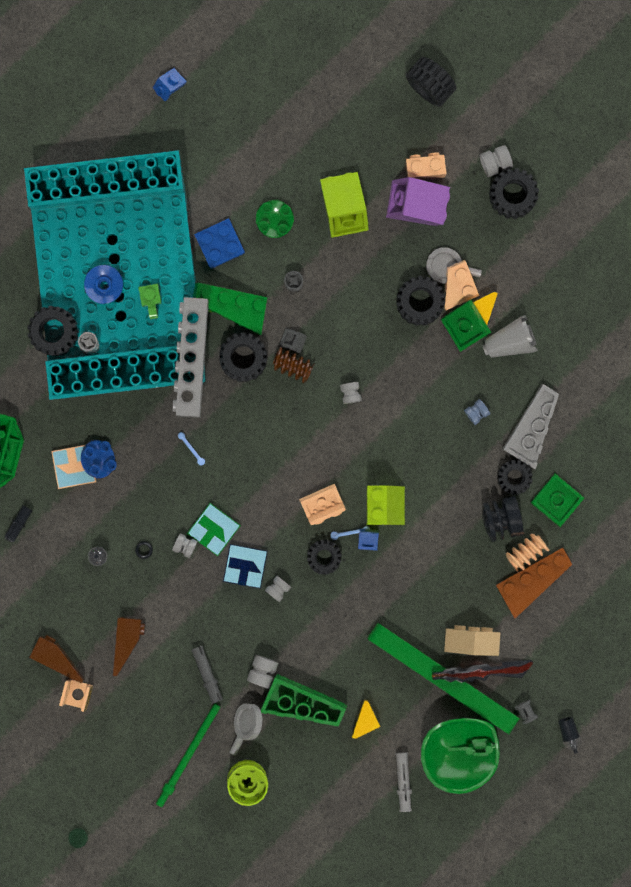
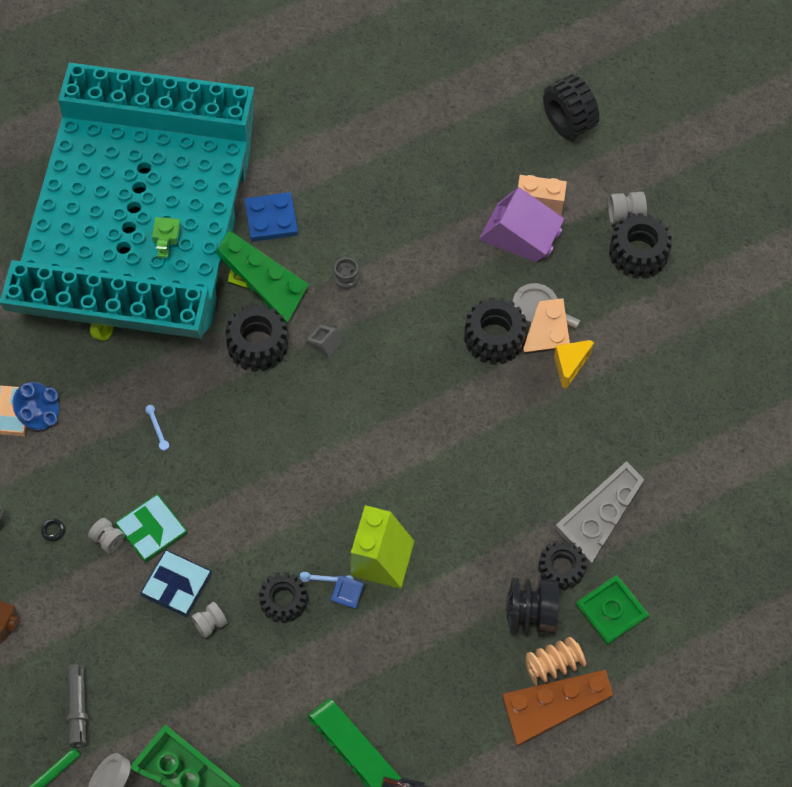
camera: 15 degrees right, 25 degrees down
(38, 323) = (30, 218): black tyre -> none
(86, 340) = (72, 256): light grey wheel -> none
(96, 277) = (113, 195): blue dish -> none
(169, 84) = (268, 46): blue bracket -> none
(200, 307) = (171, 348): light grey brick -> none
(262, 671) = (152, 718): light grey wheel -> none
(274, 219) = (344, 206): green dish -> none
(292, 365) = (314, 364): reddish brown piece -> none
(322, 505) = (301, 531): light nougat bracket -> none
(344, 204) = (432, 210): lime slope -> none
(350, 393) = (378, 412): light grey wheel -> none
(465, 325) = (544, 371): green tile -> none
(472, 641) = (451, 753): tan brick -> none
(477, 412) = (533, 474): sand blue wheel -> none
(511, 340) = (597, 400): light grey cone -> none

